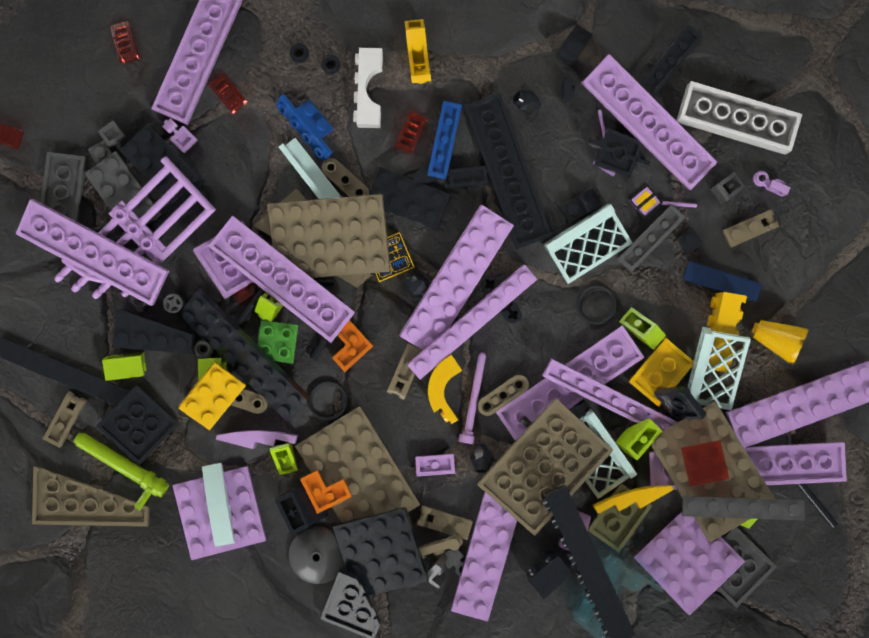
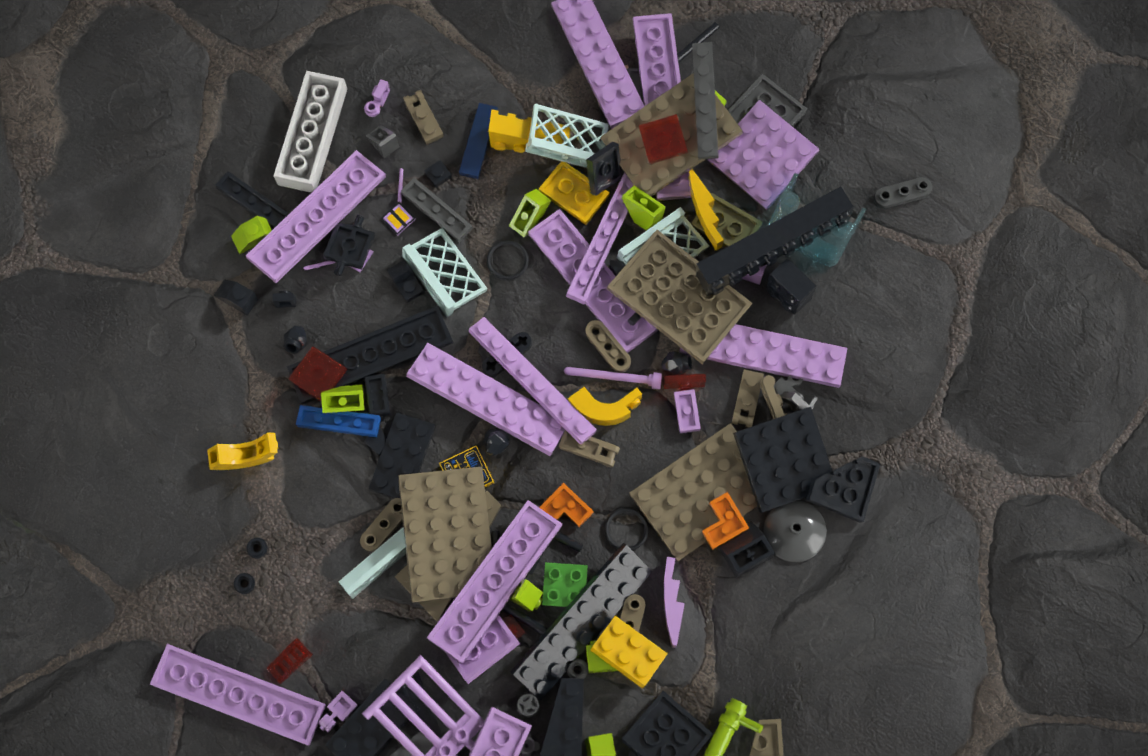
camera: 90 degrees left, 15 degrees down
(195, 517) = (758, 640): lavender plate -> none
(218, 505) = (749, 636): light aqua slope -> none
(284, 458) = (691, 571): lime slope -> none
(308, 123) = (323, 568): blue bracket -> none
(370, 63) = (309, 504): white arch -> none
(412, 115) = (333, 451): clear red slope -> none
(462, 464) = (684, 382): none -> clear red plate
(463, 145) = (343, 399): none -> lime slope
(488, 121) = (317, 373): none -> clear red plate
(634, 60) = (250, 233): none -> lime slope
(780, 338) = (533, 80): yellow cone -> none

